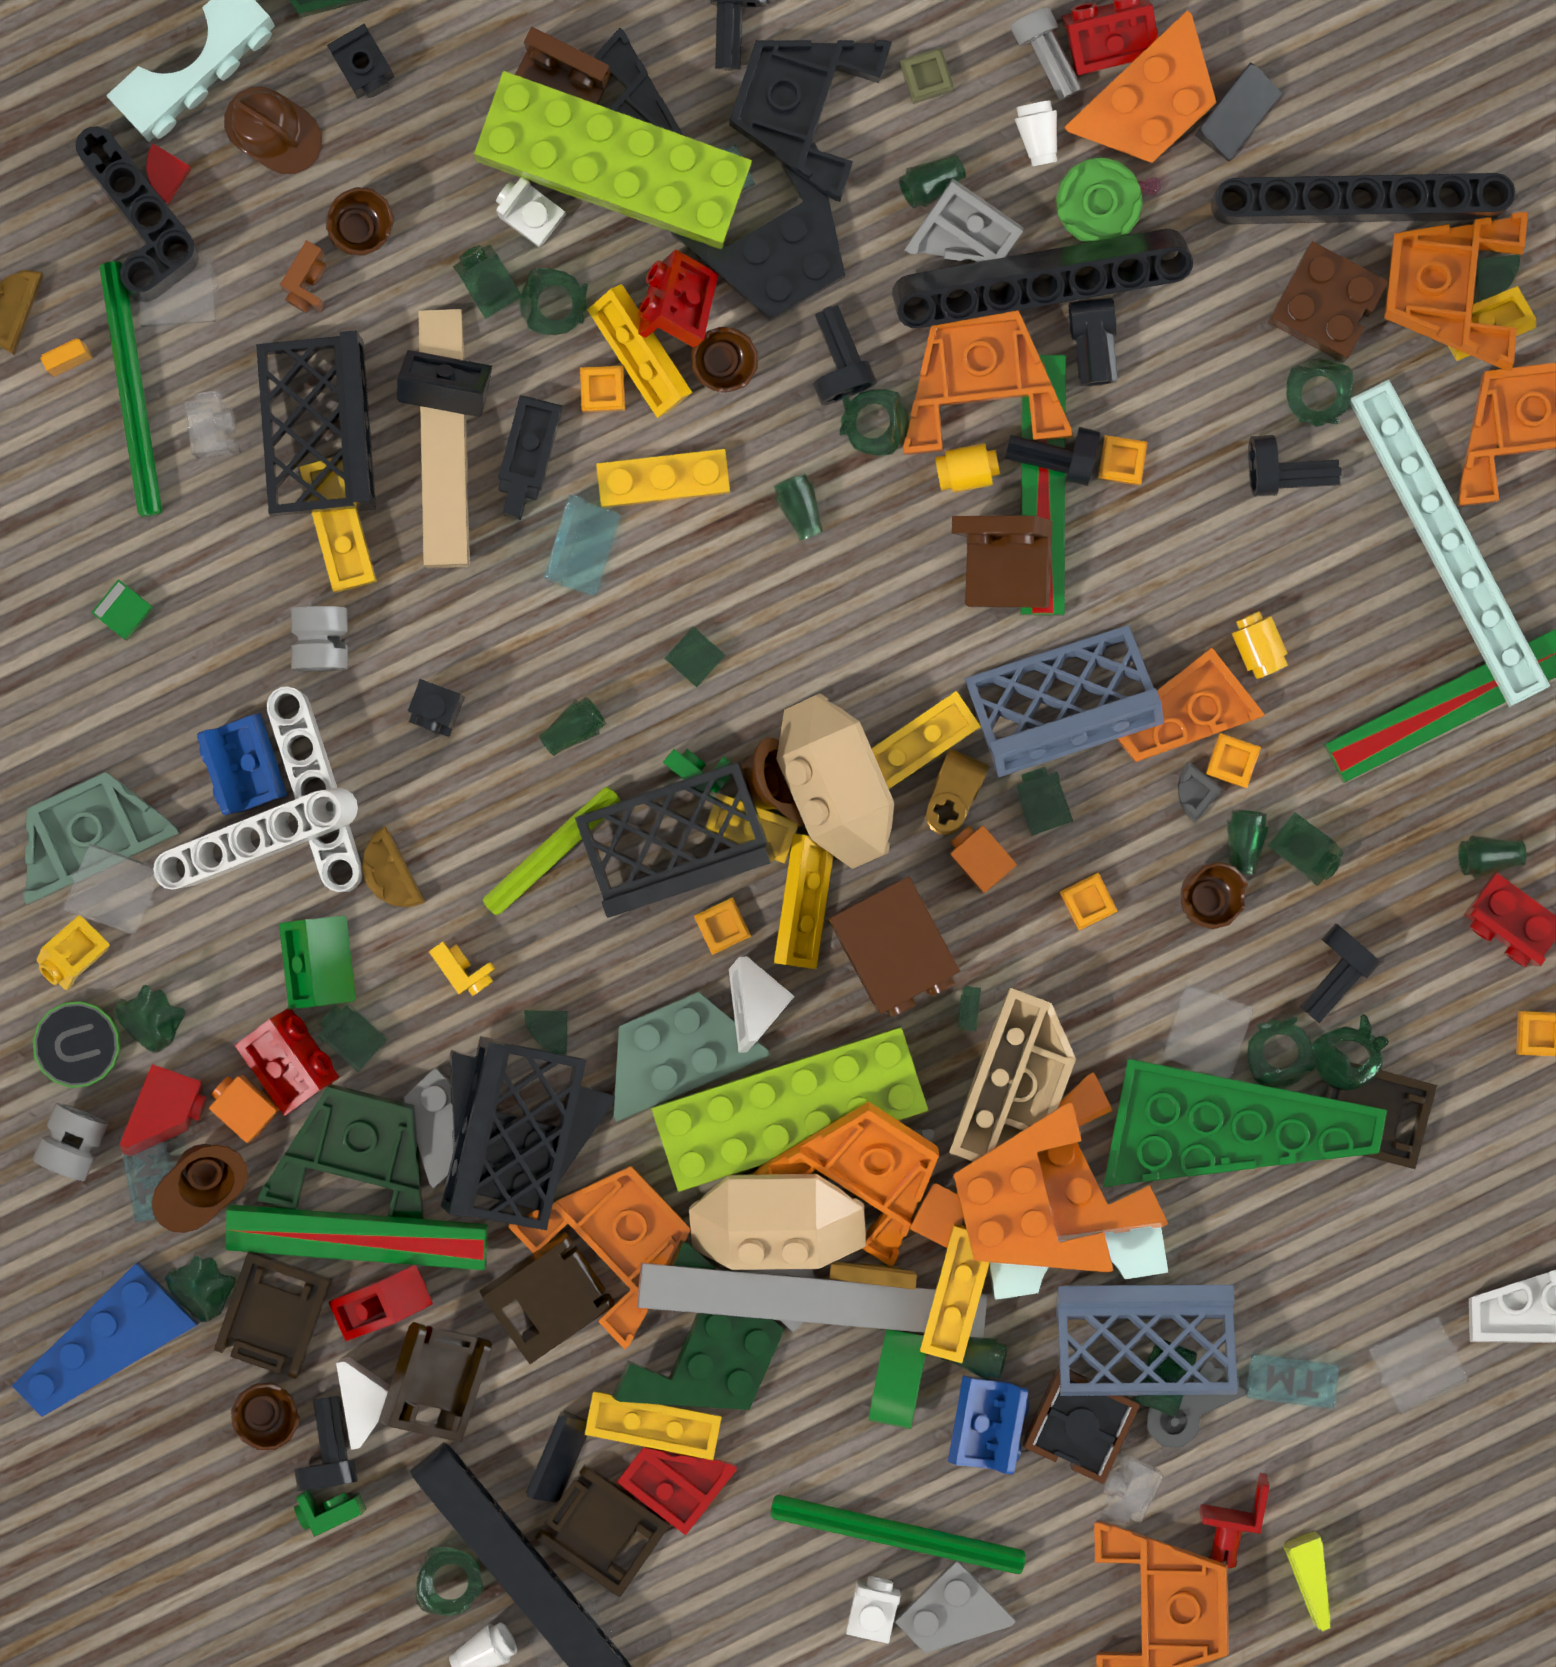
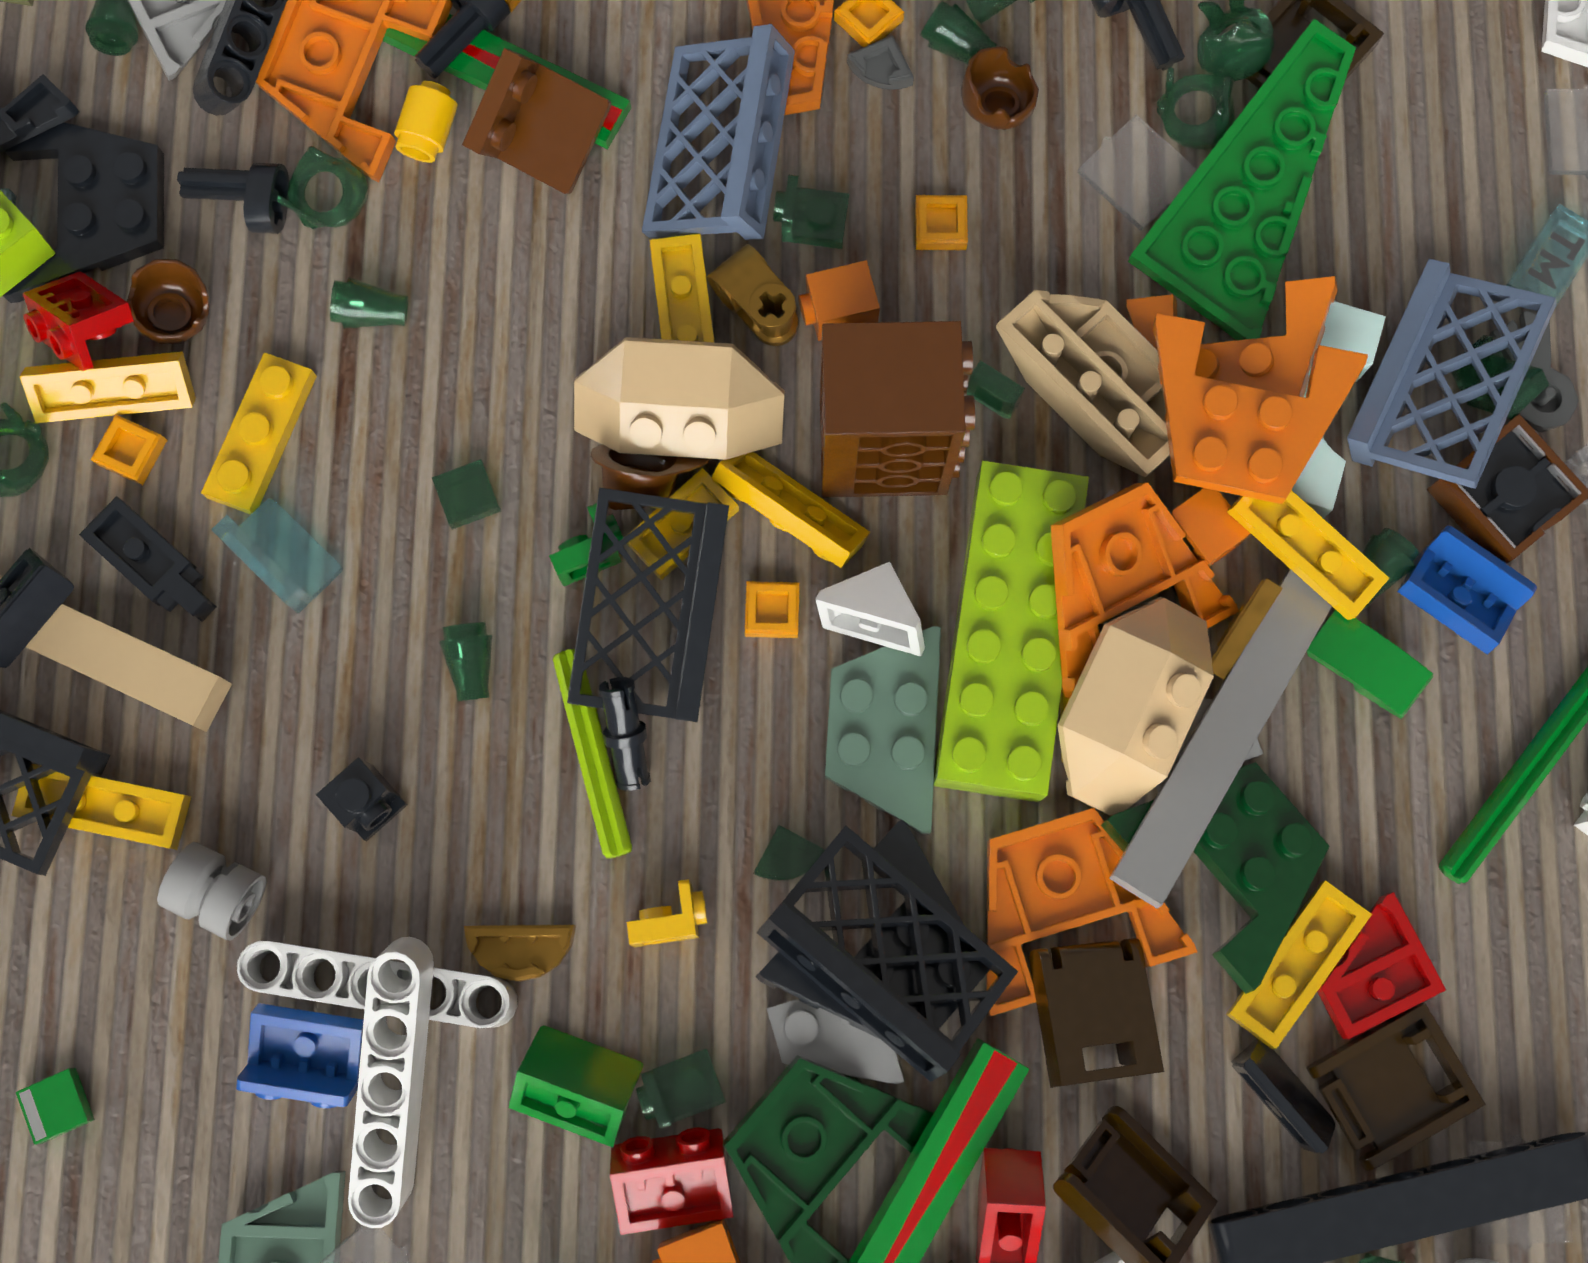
camera: 65 degrees left, 10 degrees down
(574, 870) = (624, 733): none -> black pin

